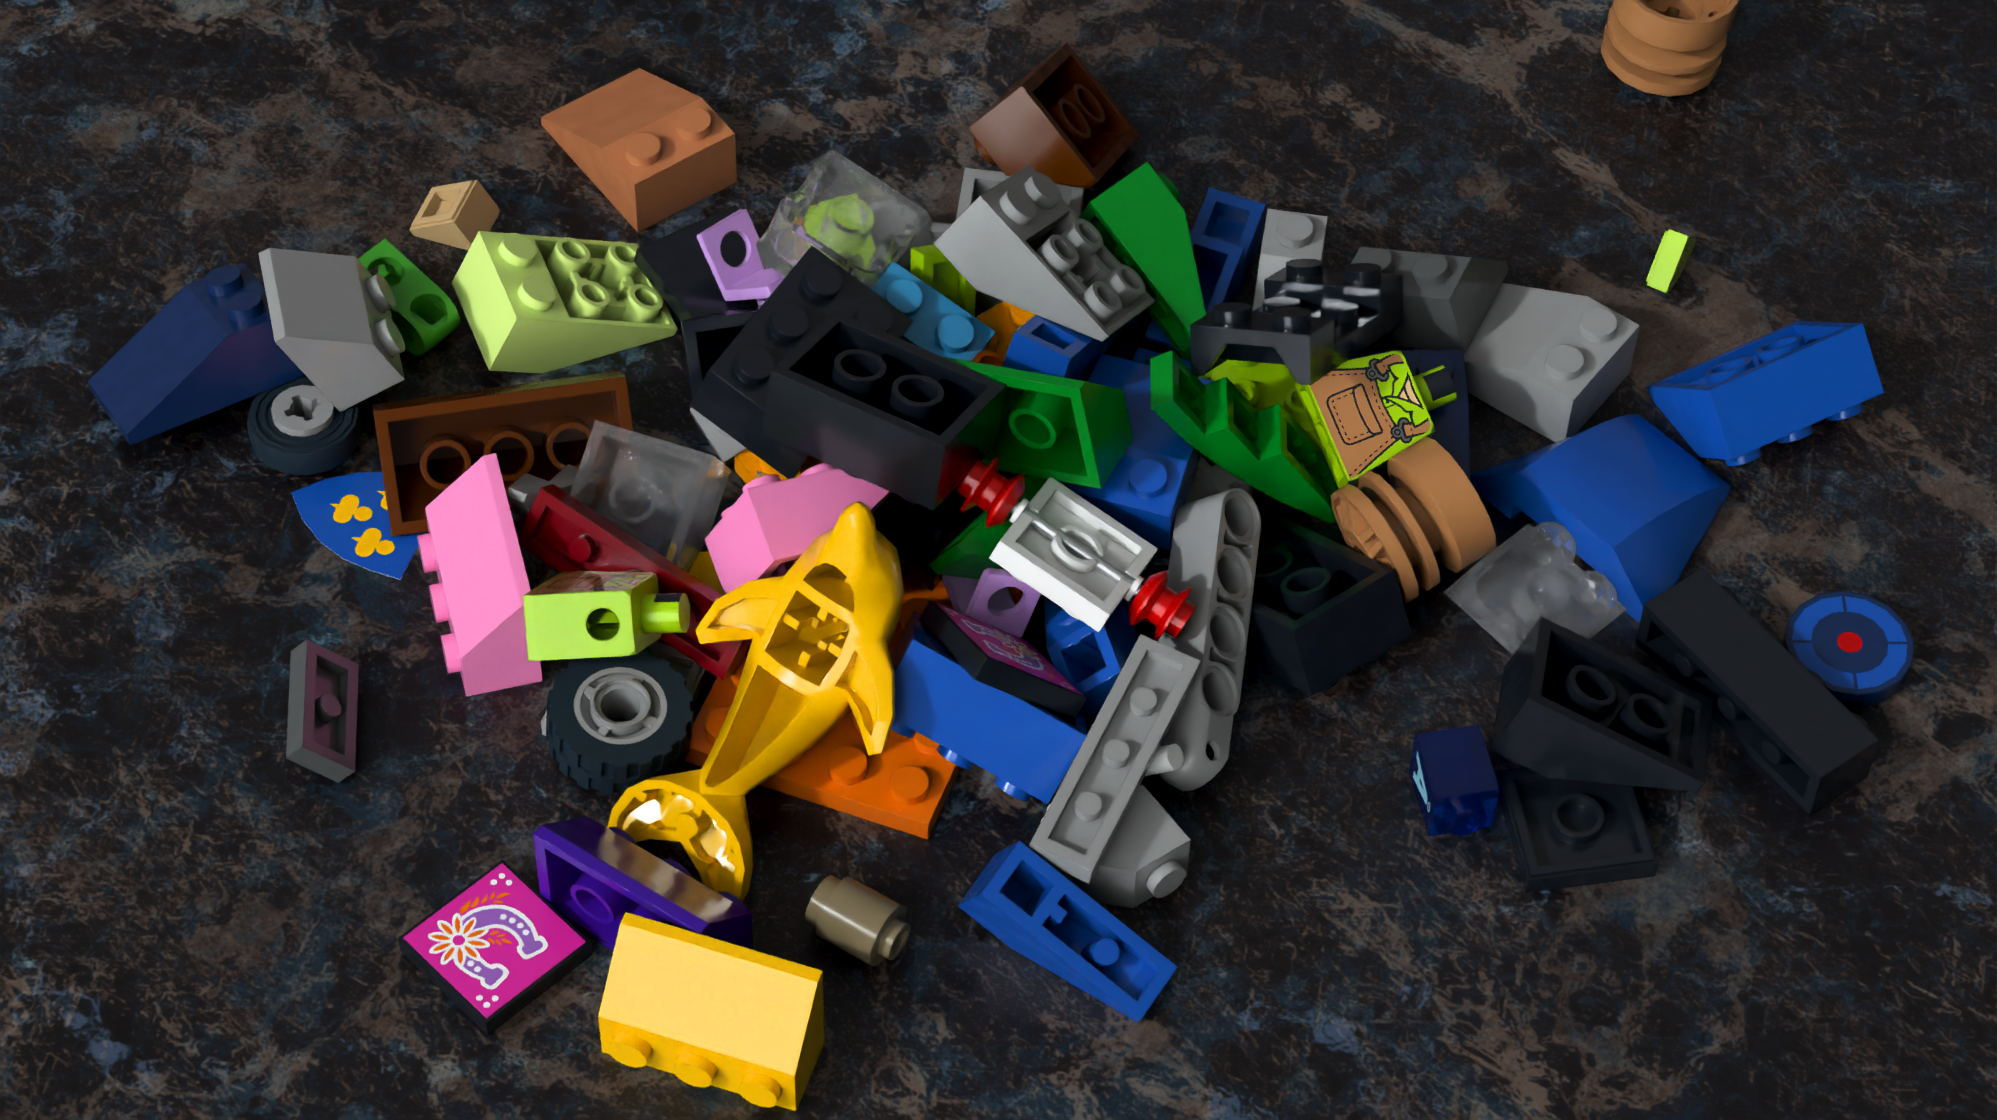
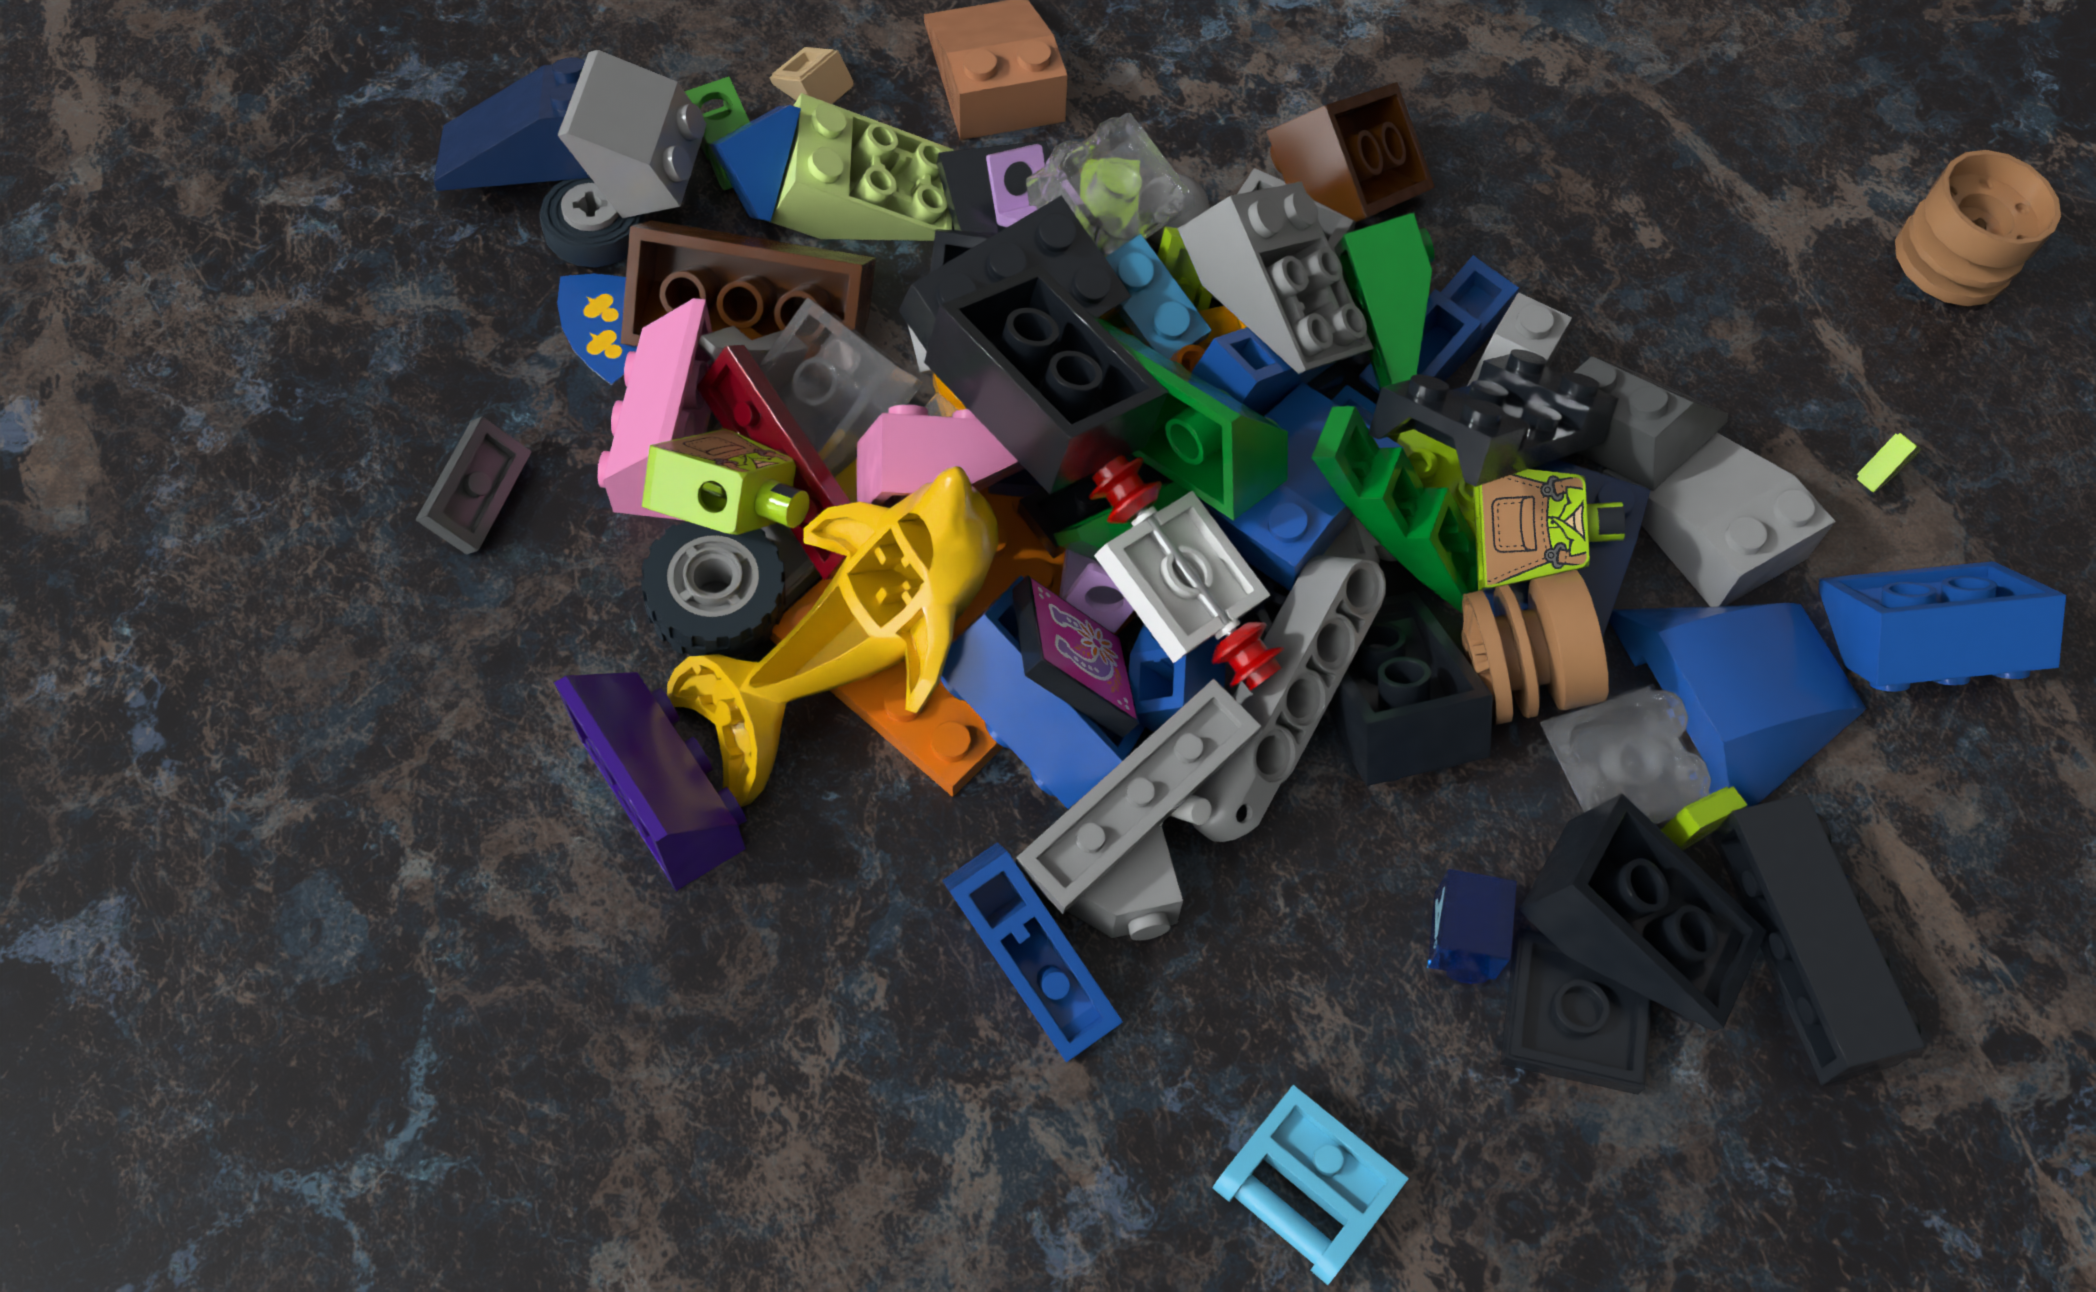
camera: 20 degrees right, 10 degrees up
(459, 311) = (757, 158): none -> blue slope
(495, 947) = (514, 765): tile -> none
(712, 1012) = (654, 916): yellow slope -> none
(858, 919) = (843, 861): dark tan brick -> none
(1408, 1018) = (1325, 1165): none -> medium azure plate
(1622, 620) = (1703, 817): none -> lime tile
(1852, 645) = (1929, 920): tile -> none

